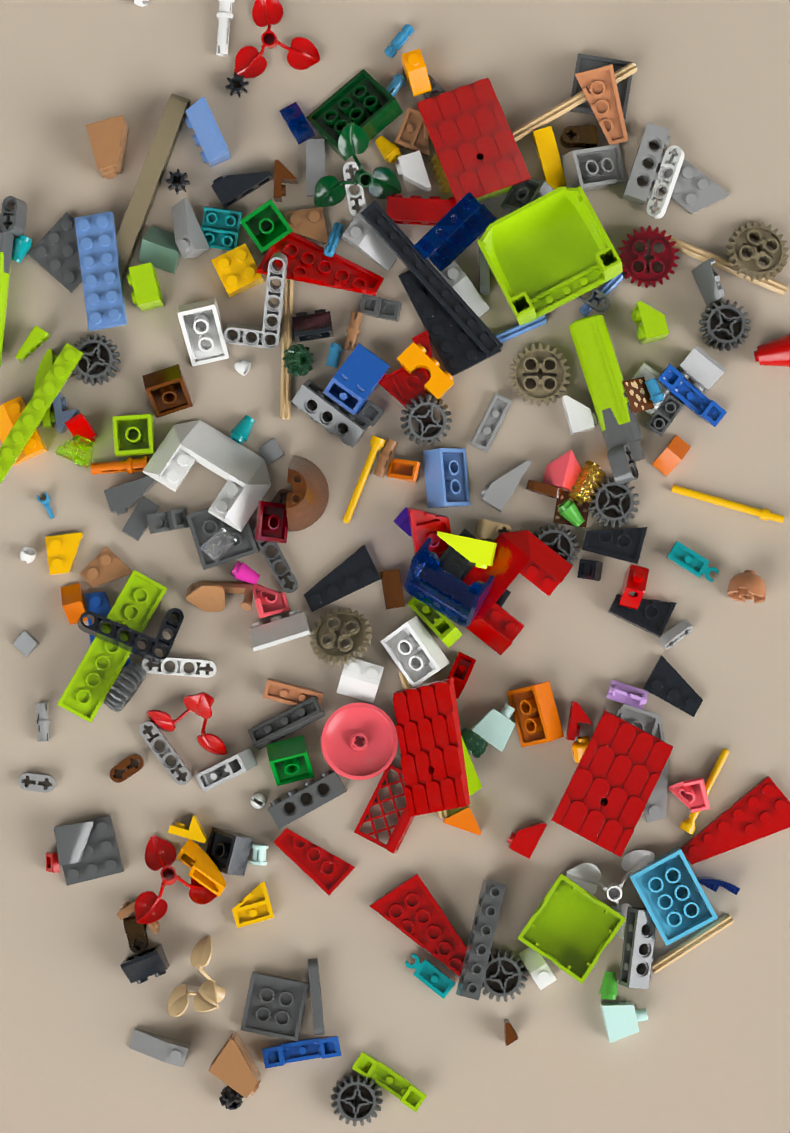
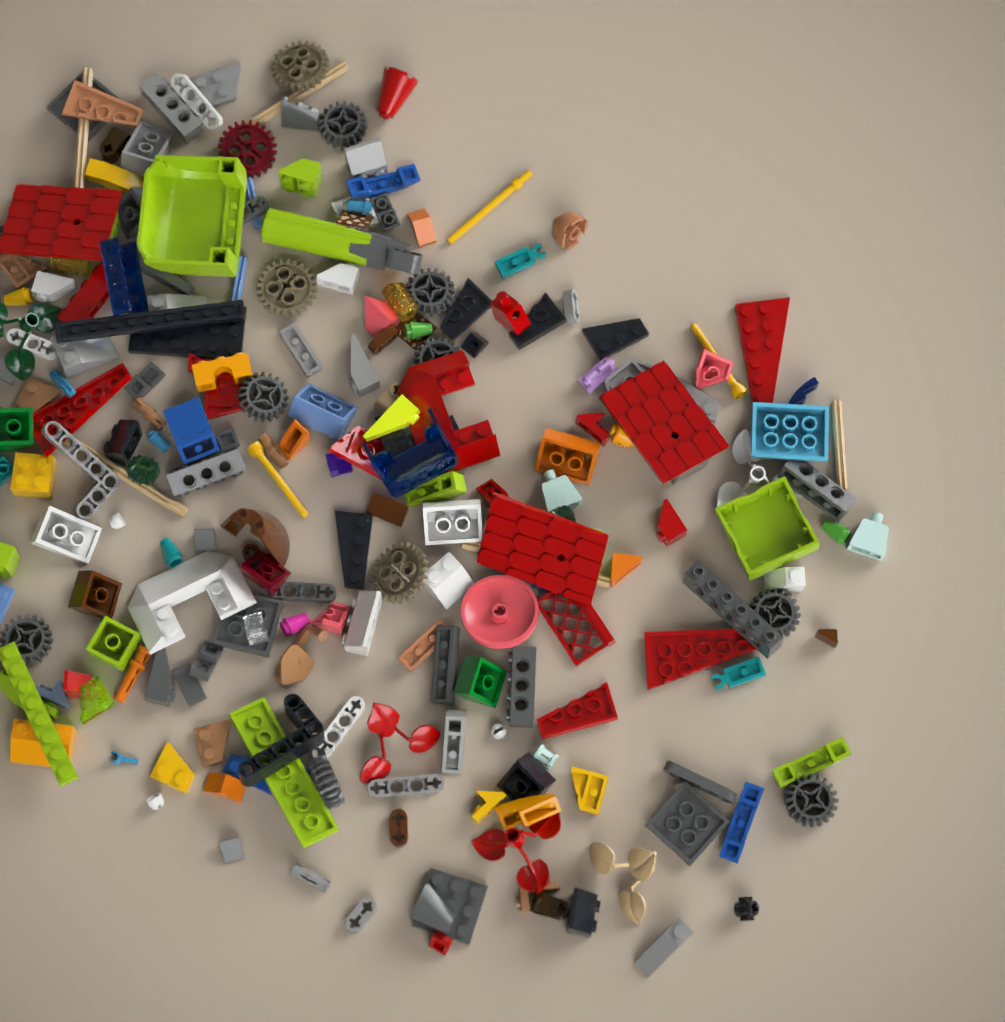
camera: 60 degrees left, 15 degrees down
(236, 1067) = (720, 885): medium nougat slope -> none

